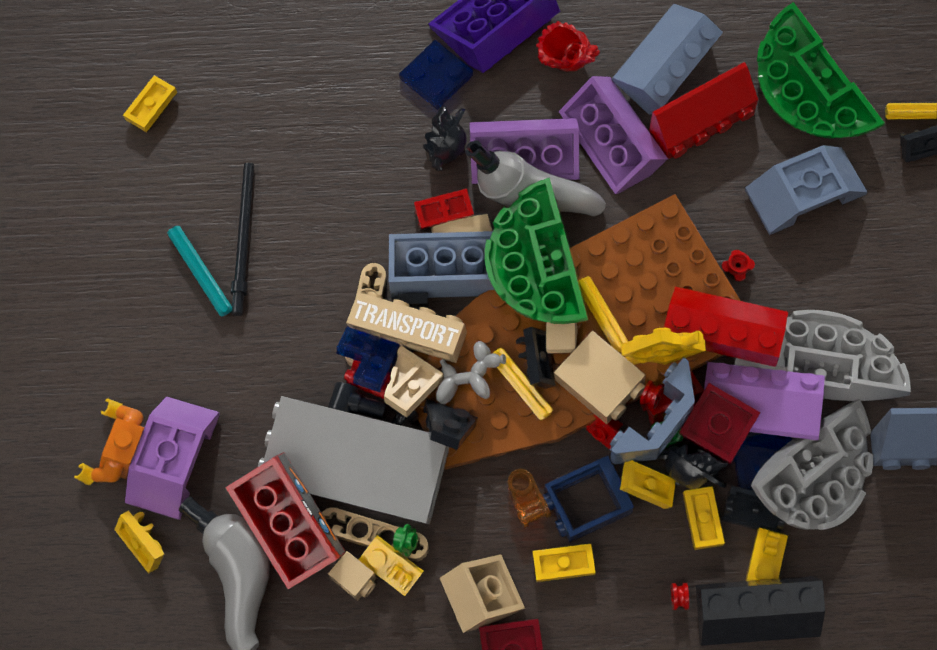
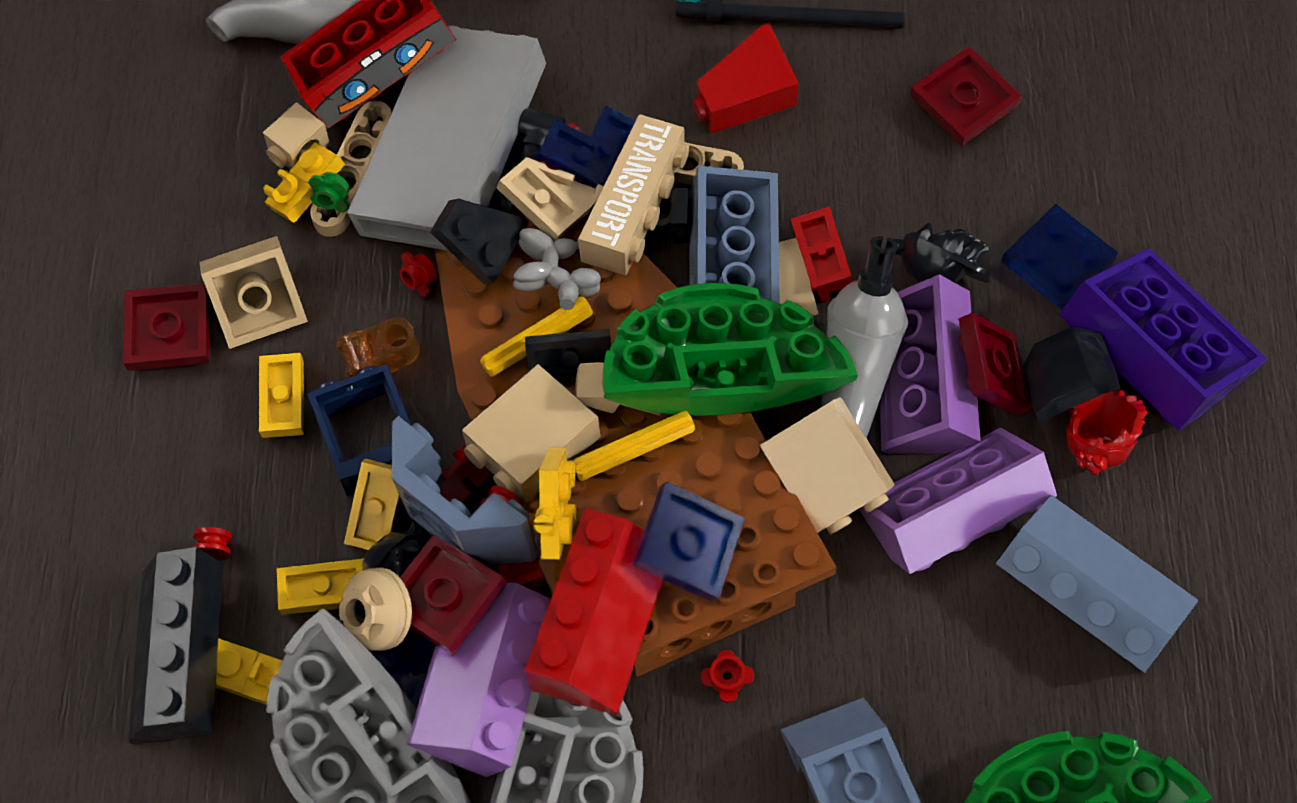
camera: 90 degrees right, 5 degrees down
(304, 262) = (746, 83): none -> red slope
(315, 125) = (965, 95): none -> dark red plate
(463, 476) = (417, 272): none -> red plate
(518, 108) = (993, 364): none -> dark red plate
(531, 64) = (1068, 371): none -> black slope
(604, 200) = (829, 466): none -> tan brick
(675, 271) = (689, 541): none -> clear blue plate
(704, 112) = (992, 633): red slope -> none
(727, 459) = (385, 605): none -> tan piece

